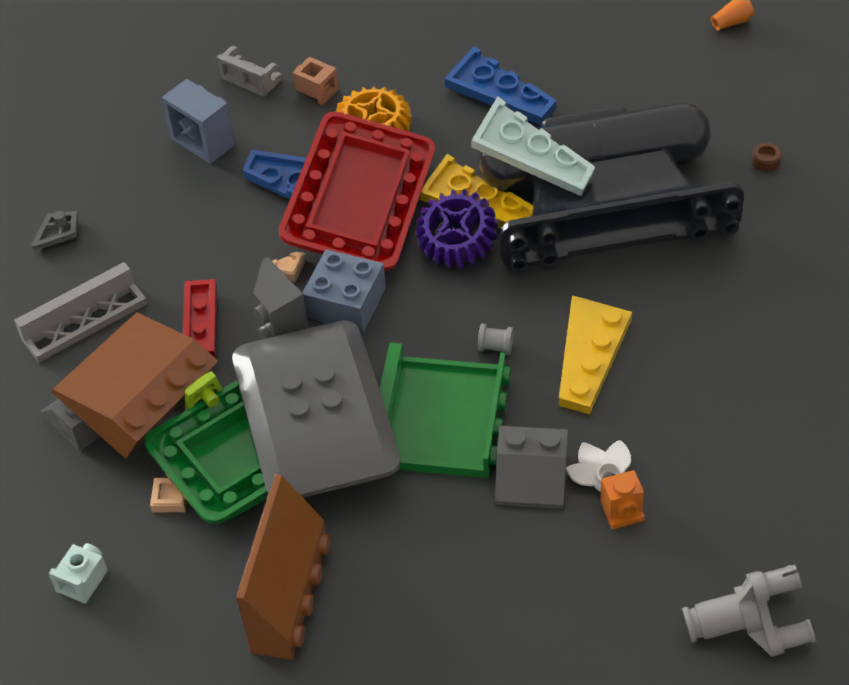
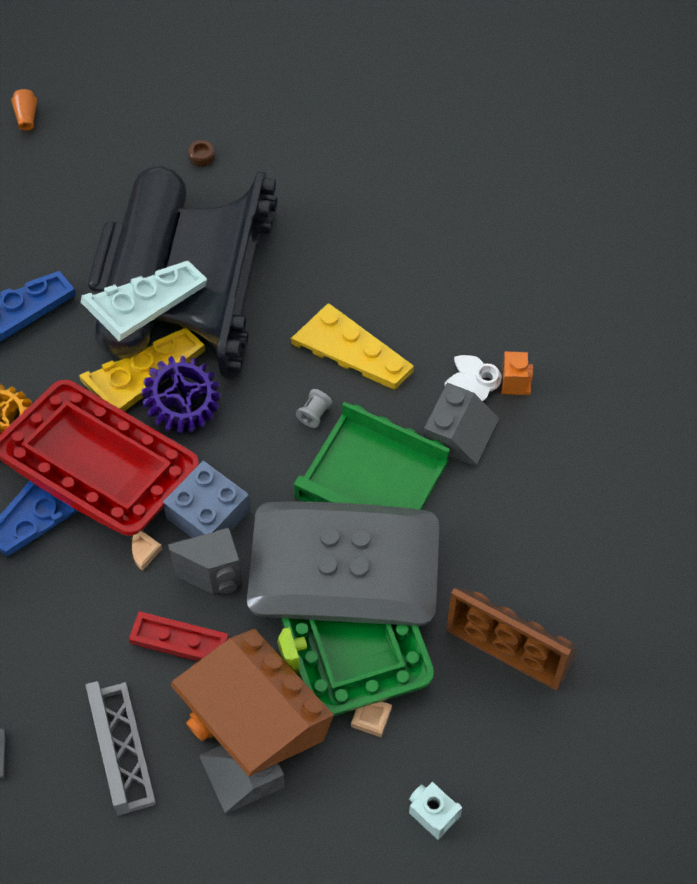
camera: 75 degrees left, 10 degrees up
(749, 611) = (647, 324): light grey wheel -> none

